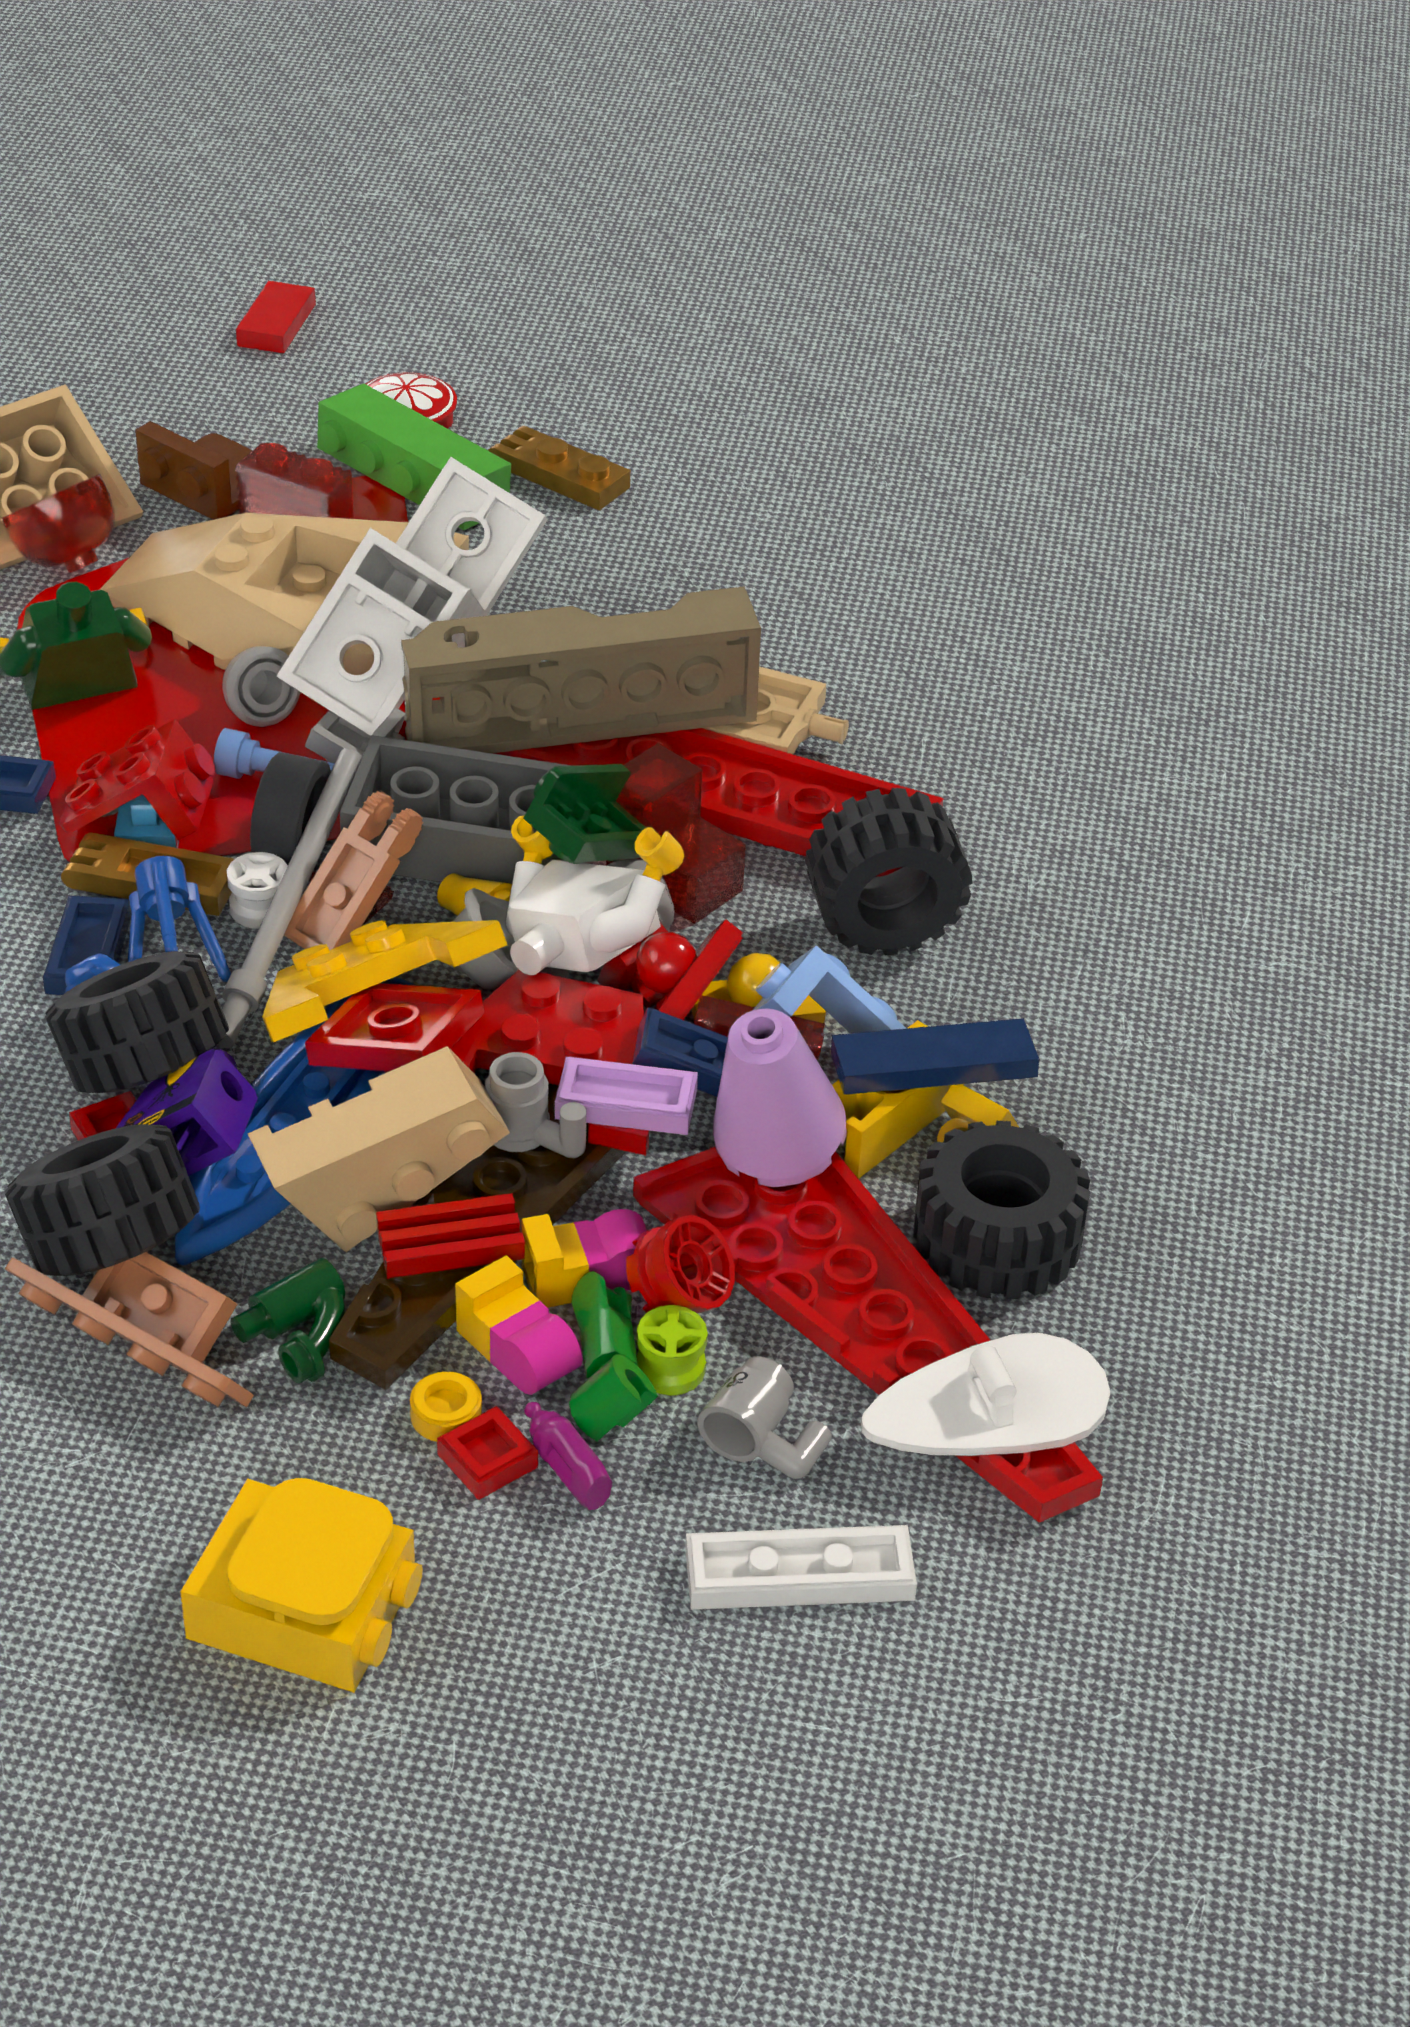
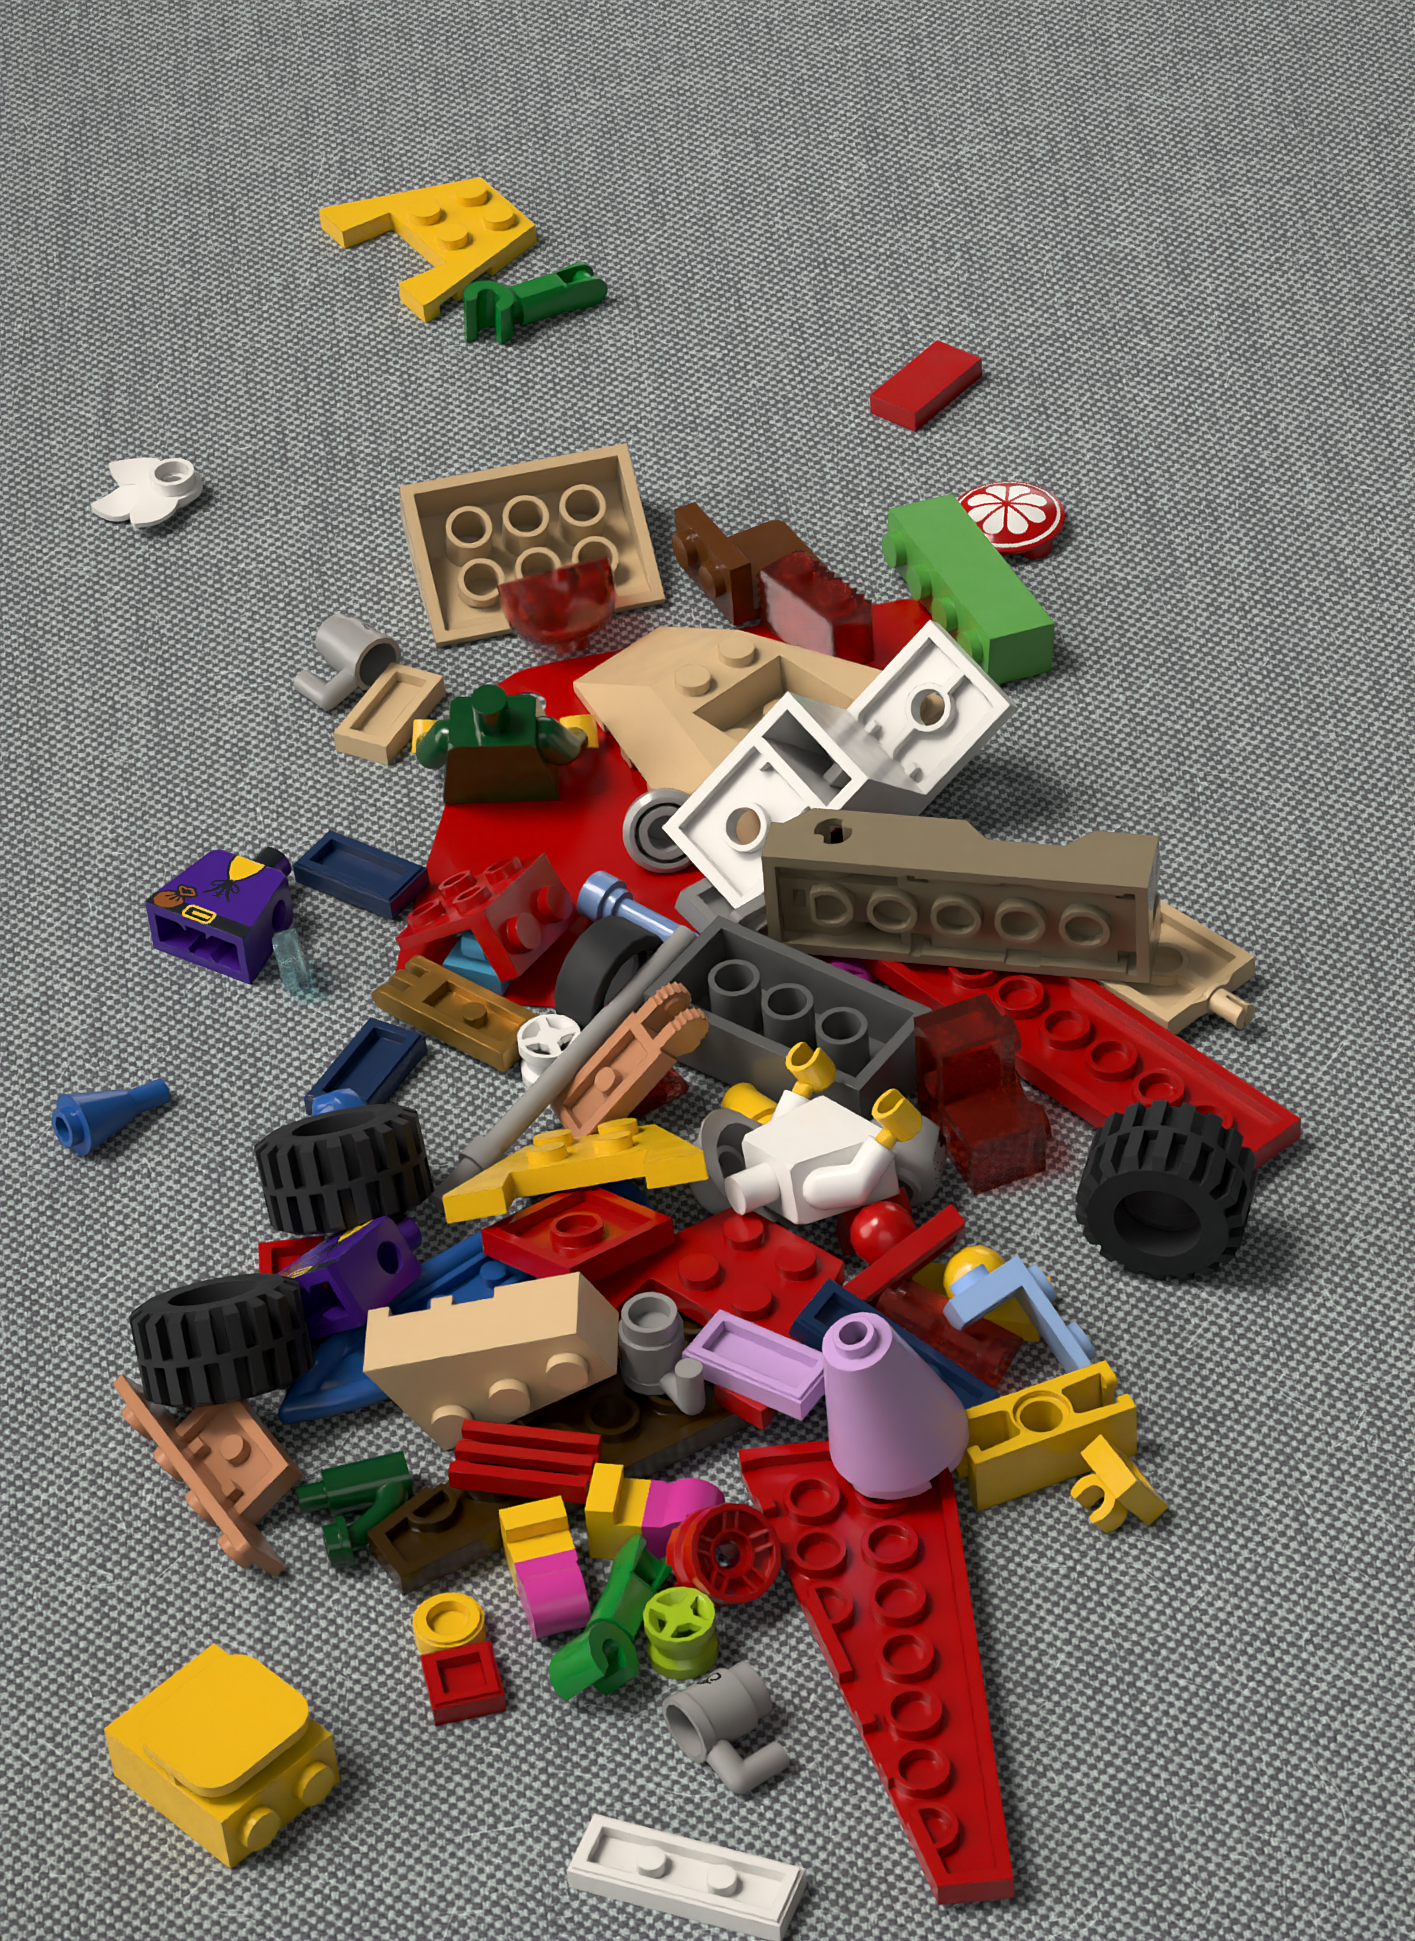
camera: 30 degrees right, 0 degrees up
(164, 896) = (442, 1041): blue plant -> none
(563, 467) = (1131, 632): pearl gold hinge -> none
(569, 1456) = (527, 1697): magenta piece -> none
(581, 816) = (861, 1052): dark green bracket -> none
(934, 1056) = (1089, 1403): dark blue tile -> none
(994, 1400) = (952, 1771): white shield -> none
(1001, 1209) = (1078, 1624): black tyre -> none

